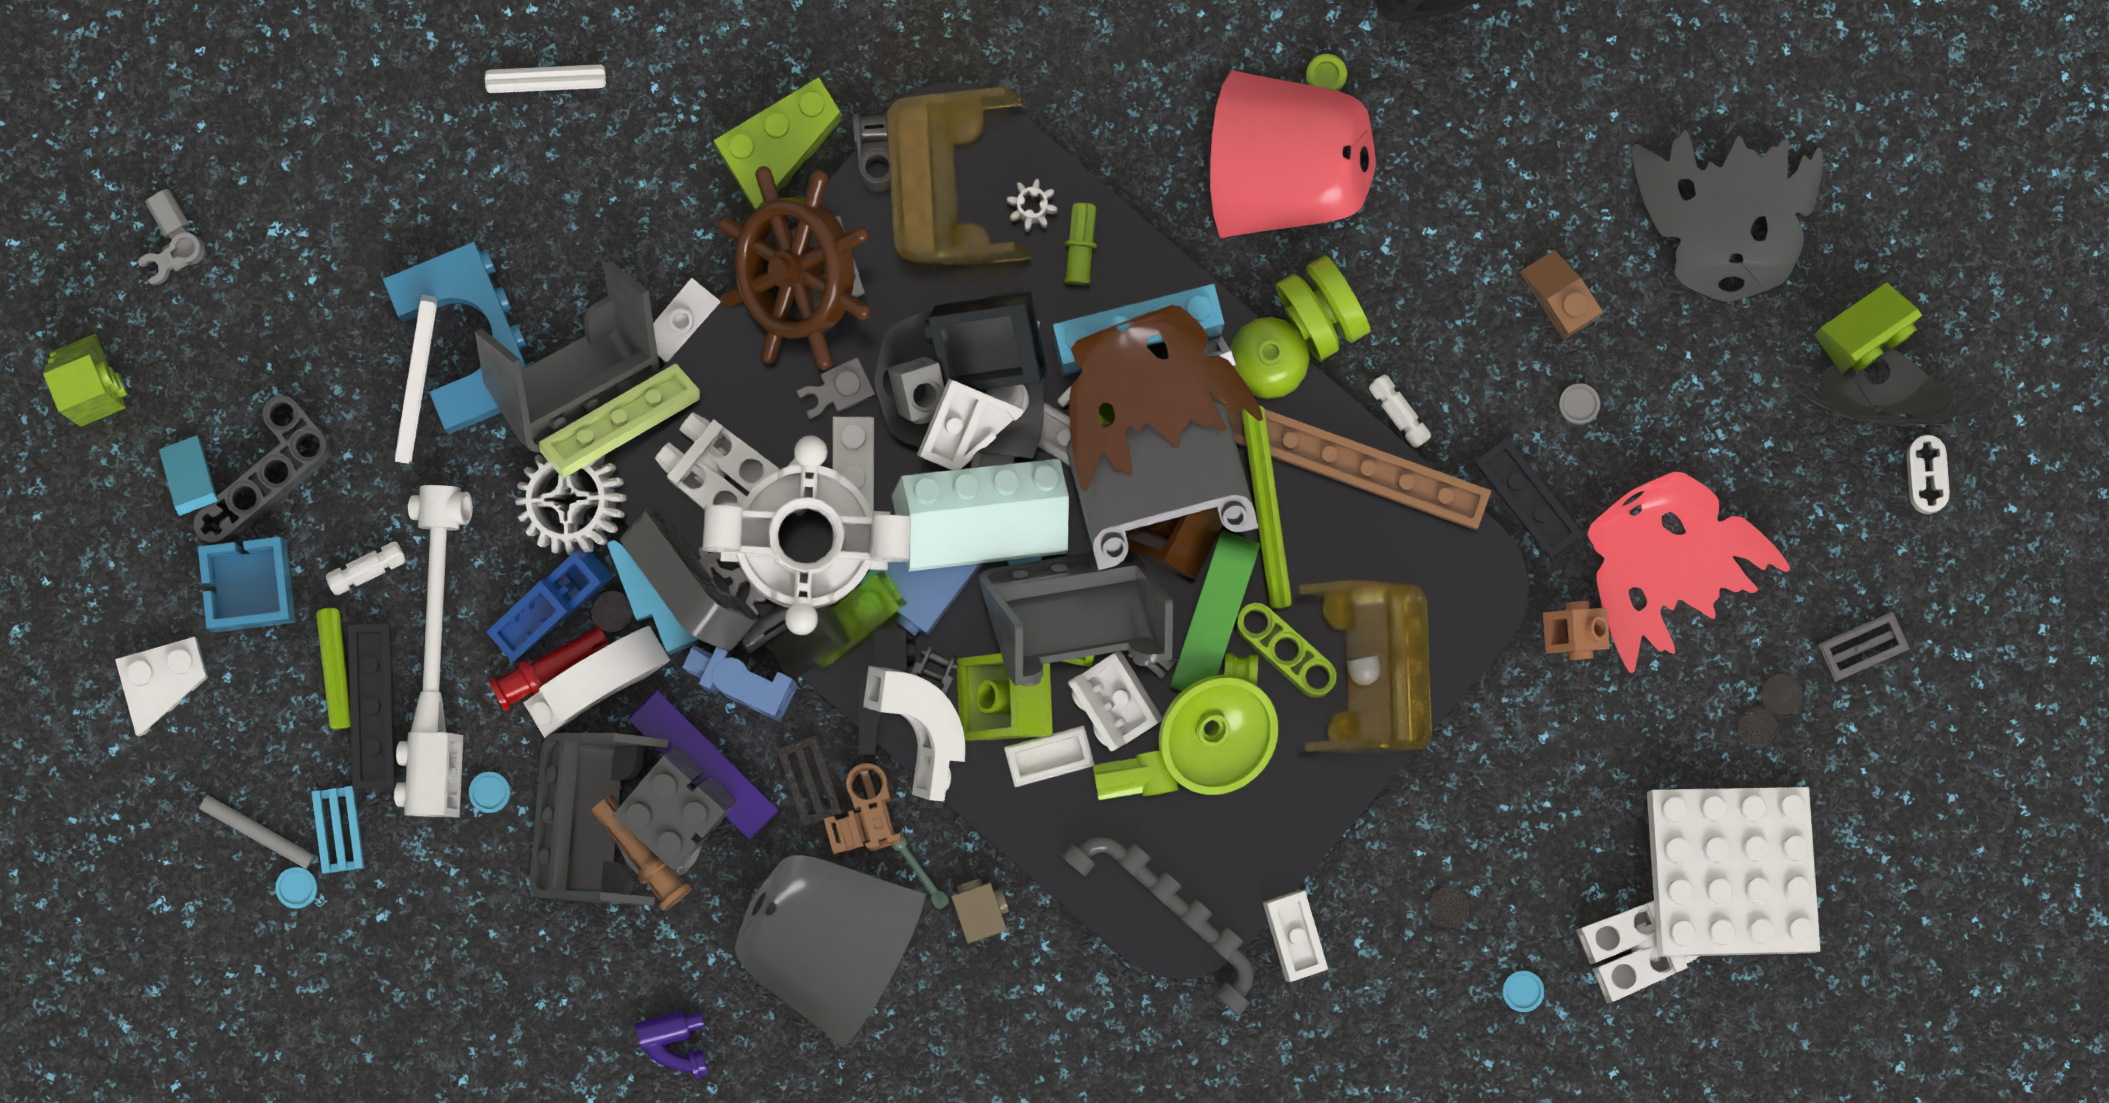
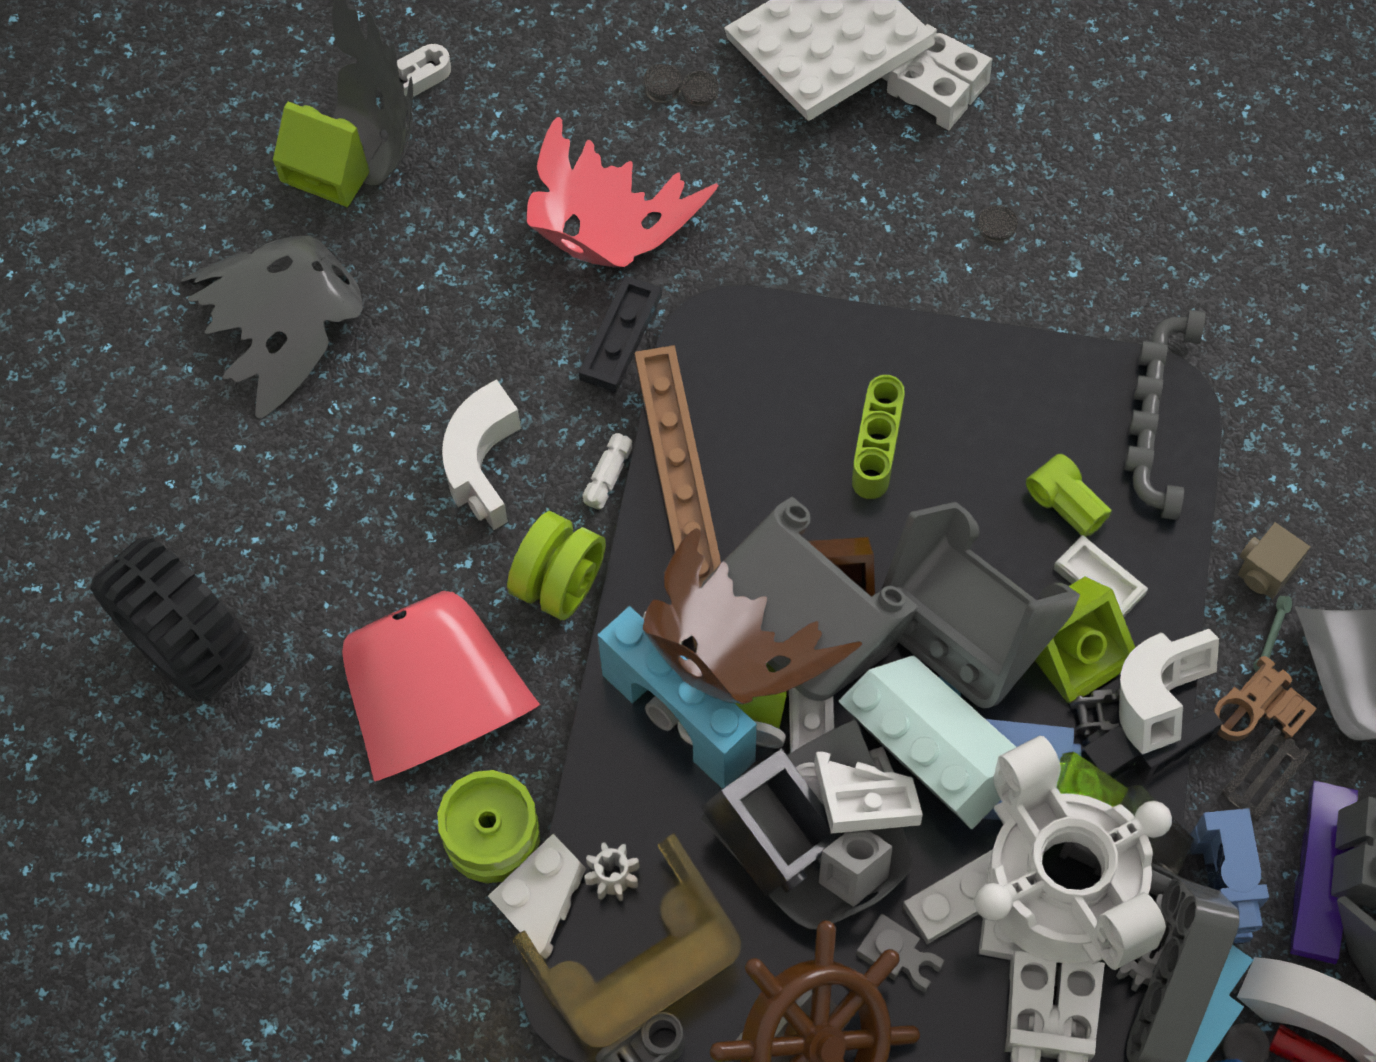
camera: 115 degrees left, 20 degrees down
(1051, 142) = (540, 892): none -> white wing
(1080, 244) = (622, 809): lime axle -> none
(1114, 701) = (1020, 542): white bracket -> none
(1145, 115) = (481, 802): none -> lime wheel
(1216, 610) = (879, 499): bright green beam -> none
(1229, 751) = (990, 443): lime dish -> none
(1241, 667) = (923, 461): lime wheel -> none
(1267, 510) = (802, 489): lime axle -> none
(1270, 357) = (624, 580): lime cylinder -> none
(1295, 935) = (1105, 312): white plate -> none
(1327, 72) = (332, 694): lime tile -> none
(1364, 669) = (851, 369): light grey hinge -> none
(1394, 625) = (850, 351): clear yellow windscreen -> none
(1490, 298) = (471, 433): none -> white arch
(1523, 991) = (1024, 139): medium azure piece -> none
(1561, 294) = (426, 395): medium nougat slope -> none
(1576, 630) = (710, 235): nougat brick -> none
(1579, 404) = (513, 342): light grey piece -> none
(1830, 660) = (582, 54): flat silver tile -> none

